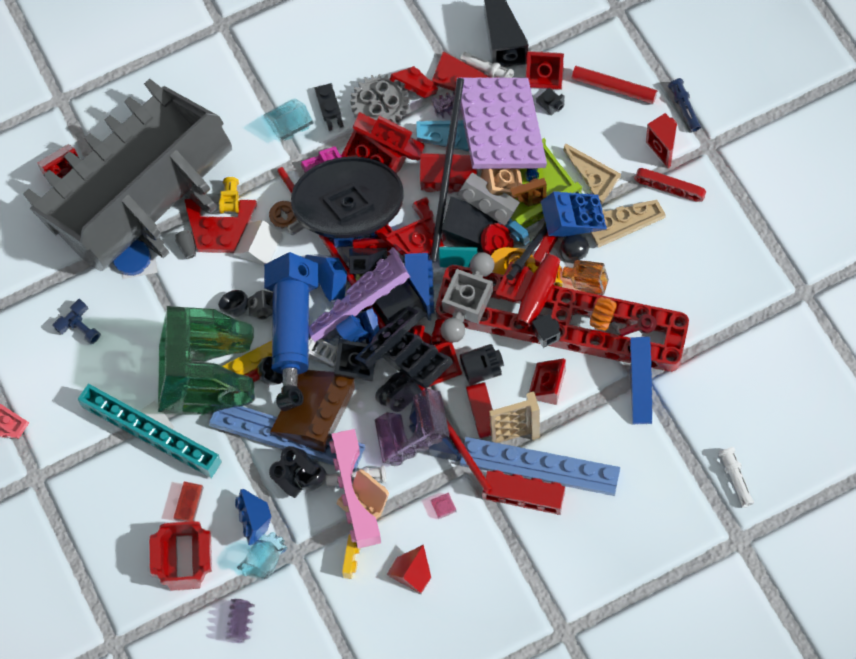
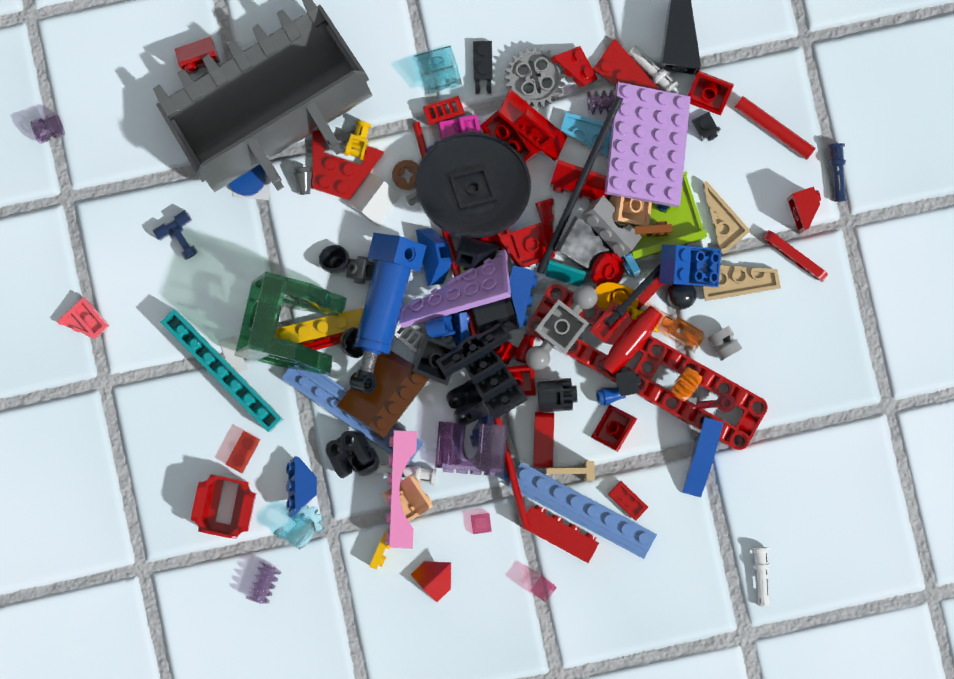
camera: 10 degrees right, 20 degrees up
(290, 151) = (427, 108): none -> red slope
(523, 546) = (543, 588): none -> clear pink panel
(532, 353) = (607, 395): none -> blue cone
(581, 443) = (628, 500): none -> red plate
(629, 276) = (731, 346): none -> light grey wheel

